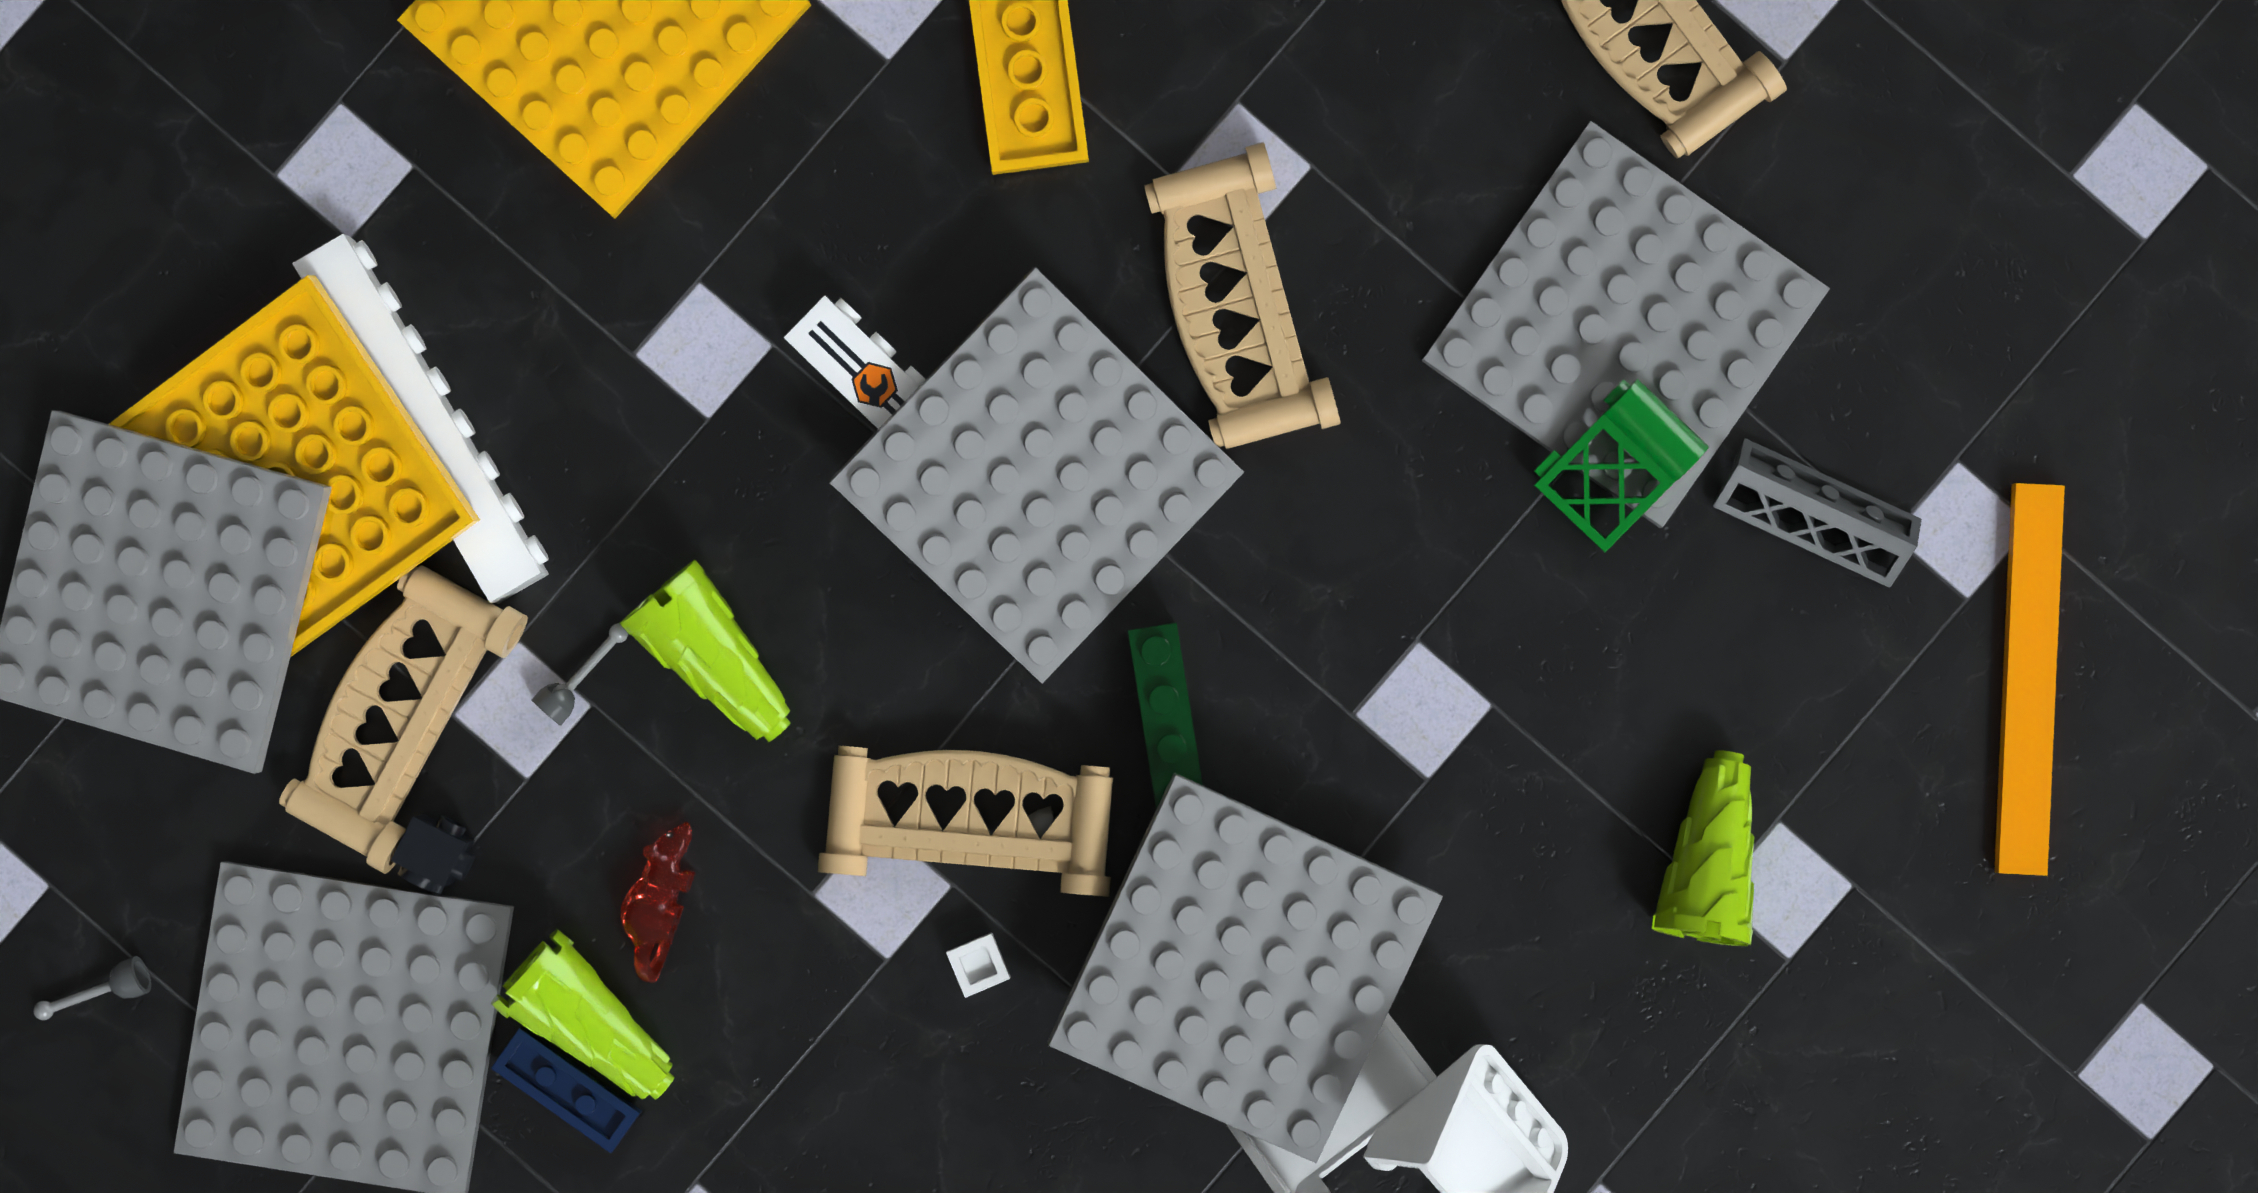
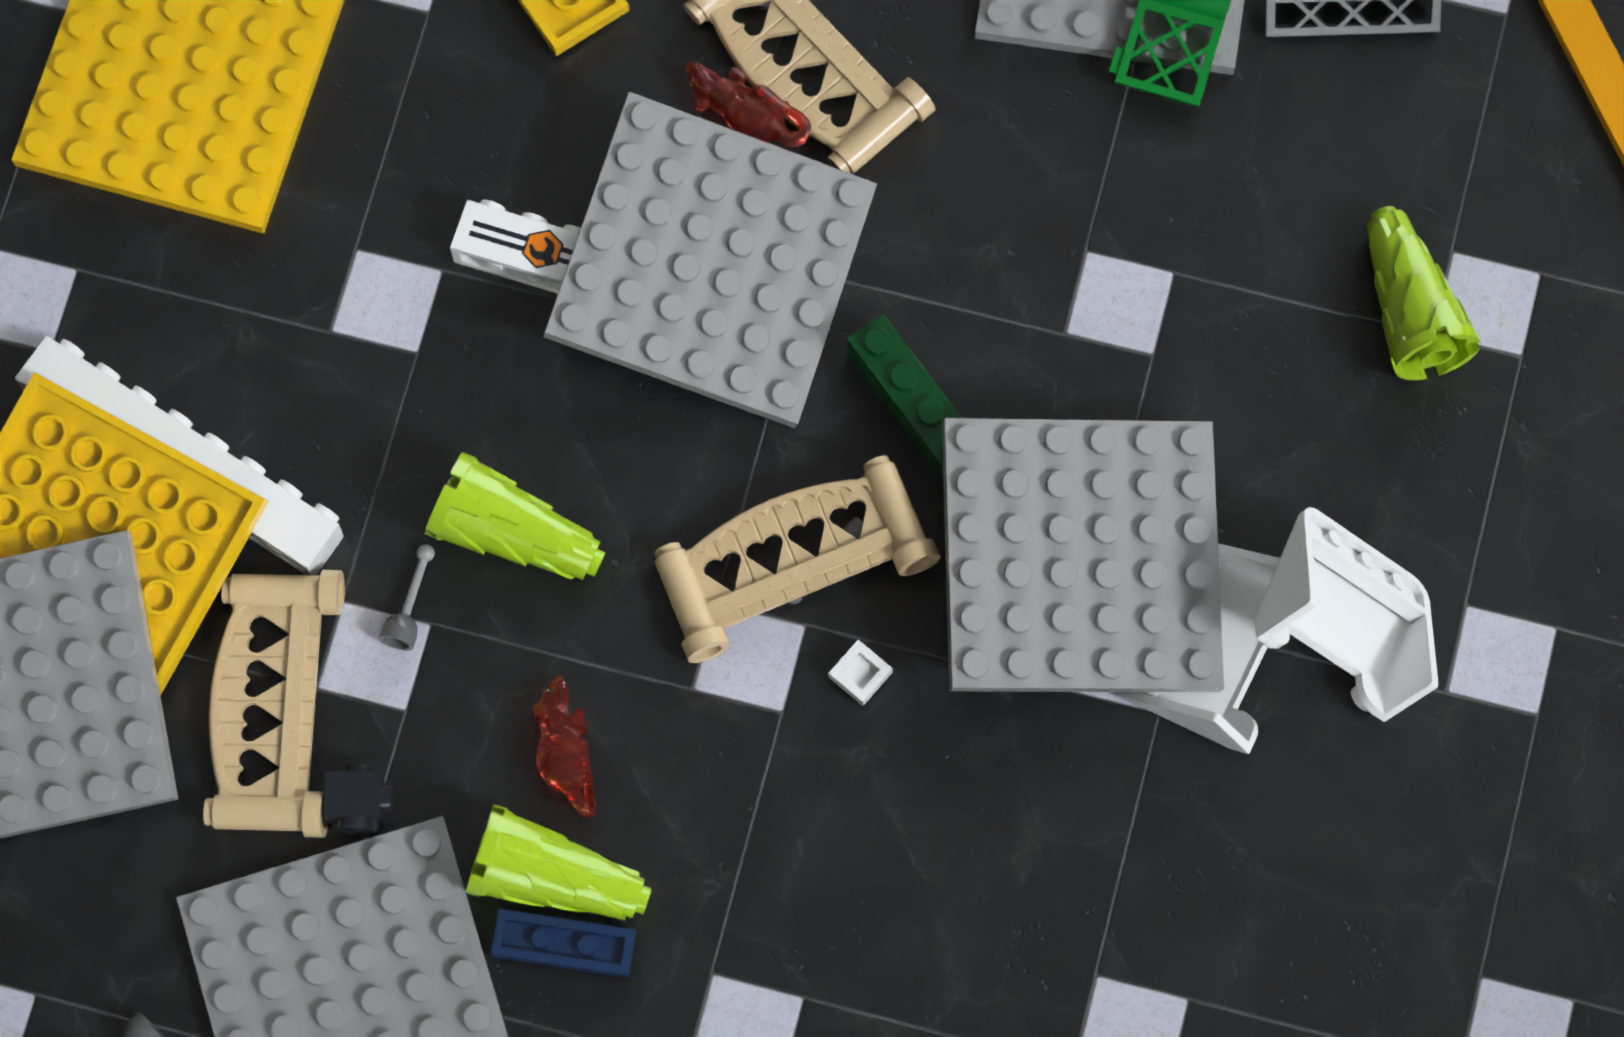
camera: 20 degrees left, 15 degrees down
(1154, 337) = (747, 110): none -> clear red animal

